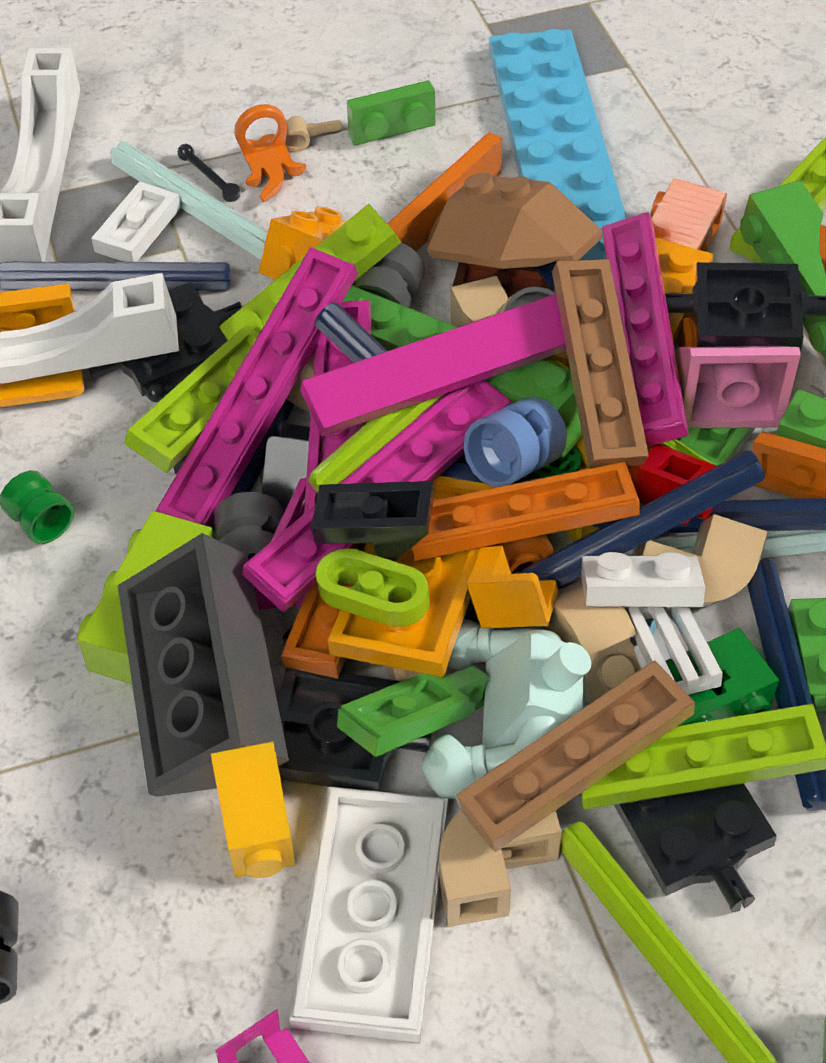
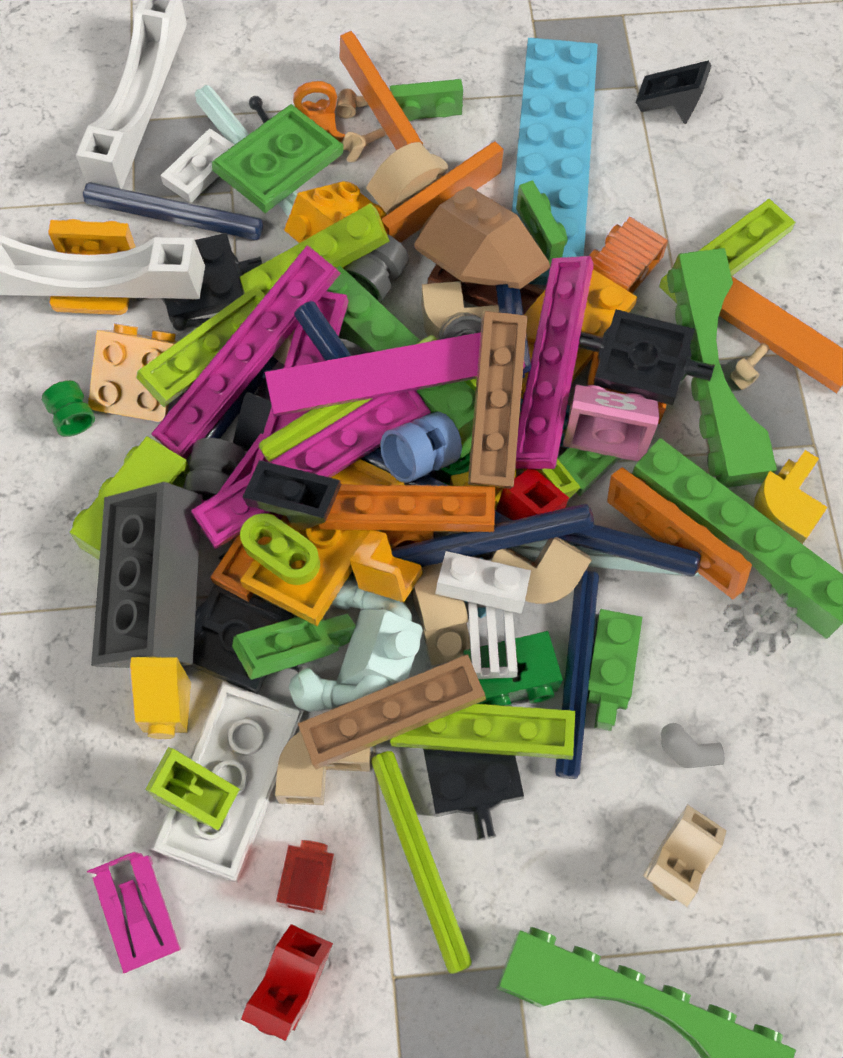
camera: 10 degrees right, 15 degrees up
(96, 463) = (114, 371): none -> light orange bracket
(231, 196) = (277, 158): none -> bright green tile
(319, 170) = (355, 143): none -> tan hand
(329, 919) = (191, 789): none -> lime slope
(339, 119) = (376, 92): none -> orange tile
(393, 181) = (405, 175): none -> tan brick
(520, 1007) = (307, 877): none -> clear red brick
(583, 196) = (539, 221): none -> bright green plate
(681, 49) = (674, 87): none -> black slope

